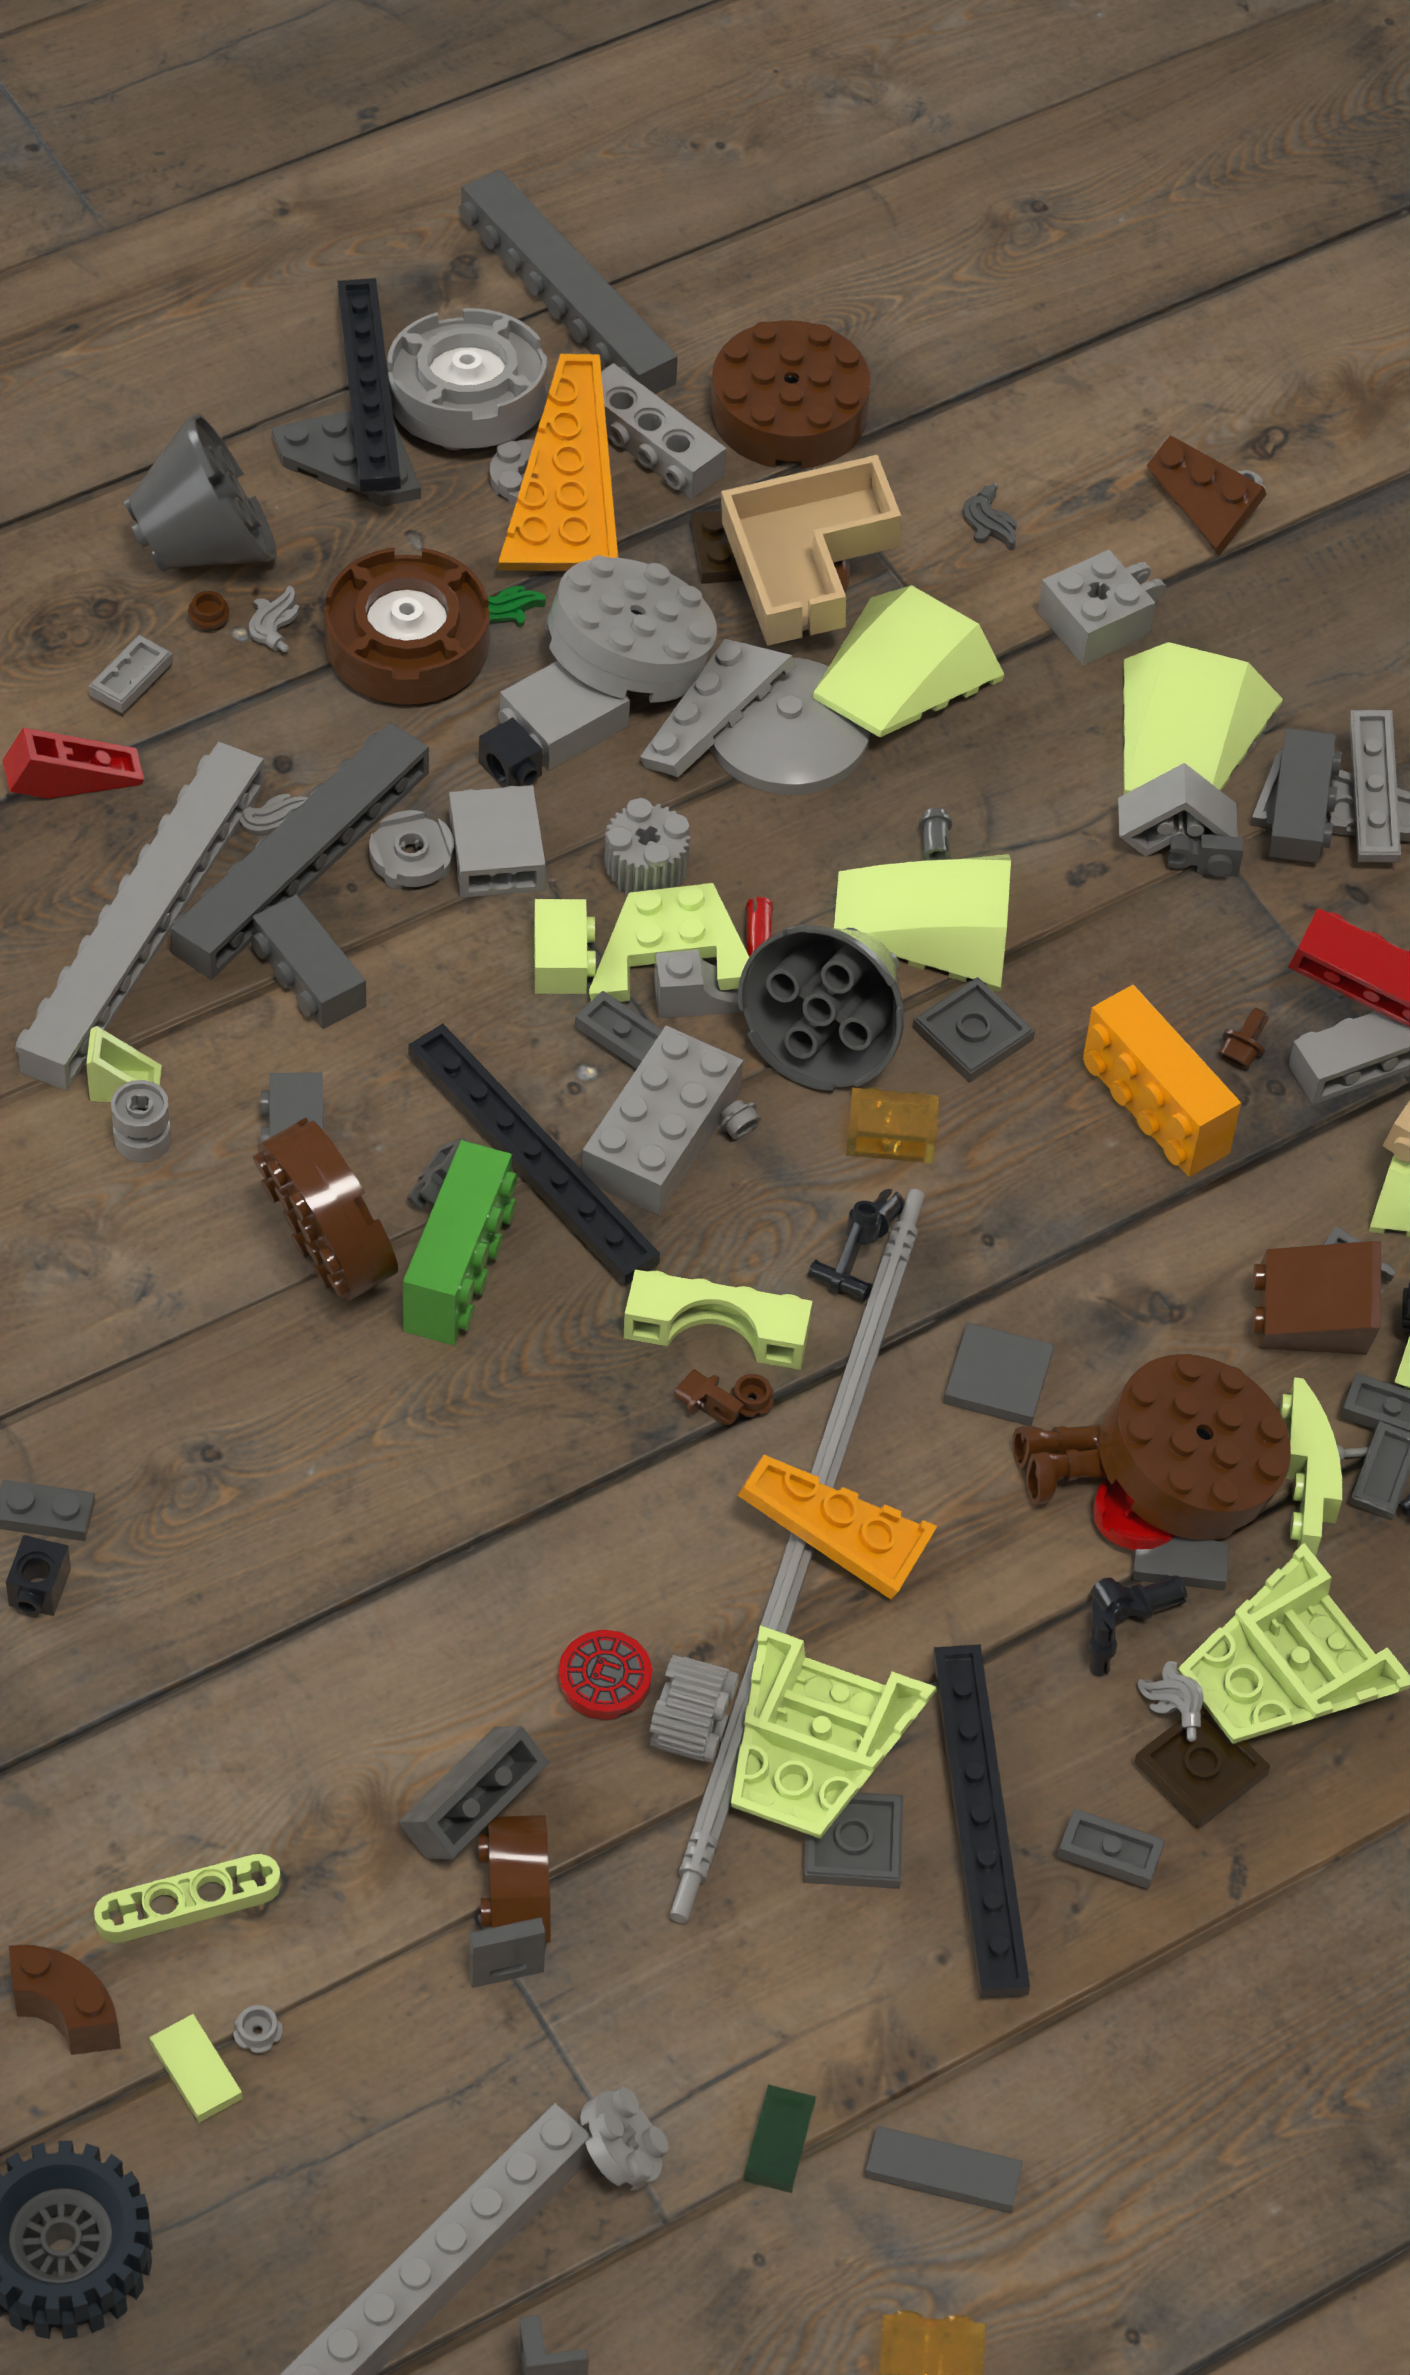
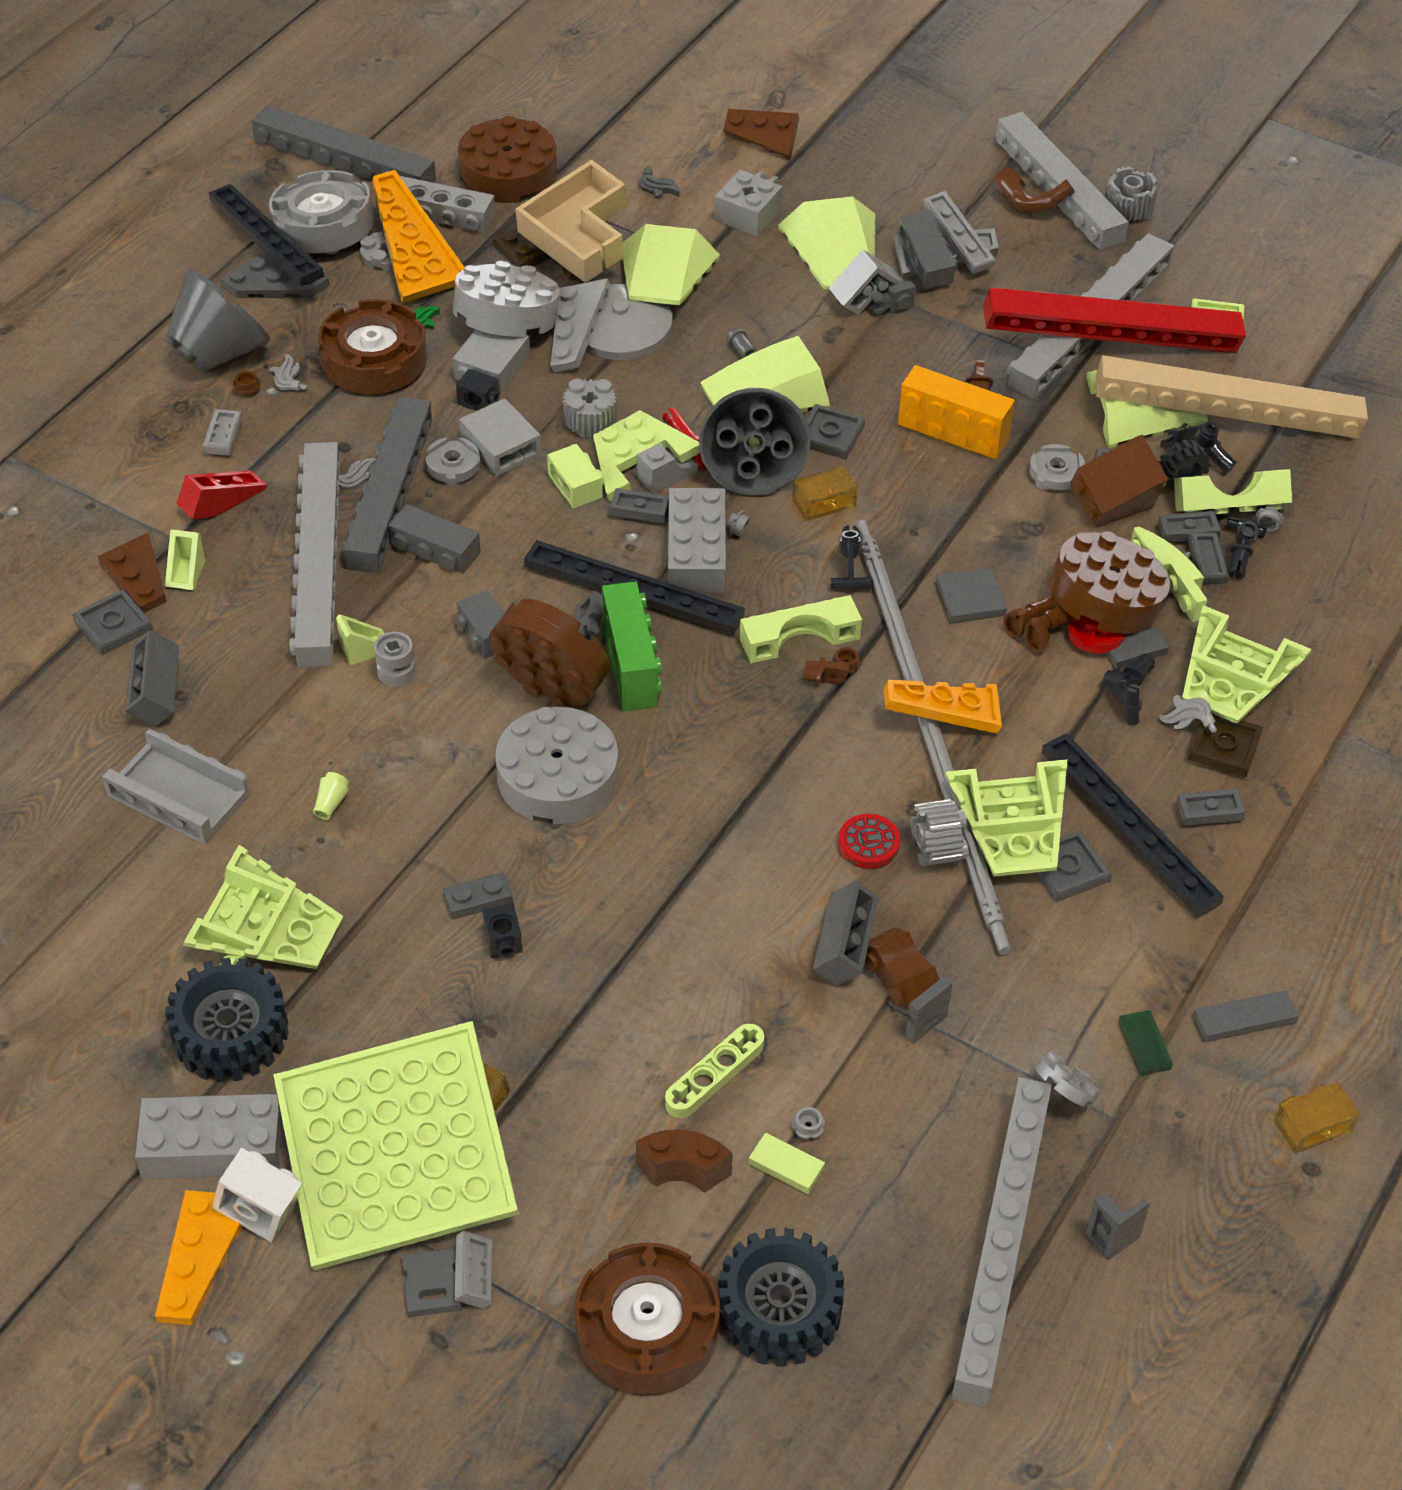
camera: 25 degrees left, 5 degrees down
(256, 1372) = (557, 764): none -> light grey piece
(1263, 1207) = (1042, 468): none -> light grey plate

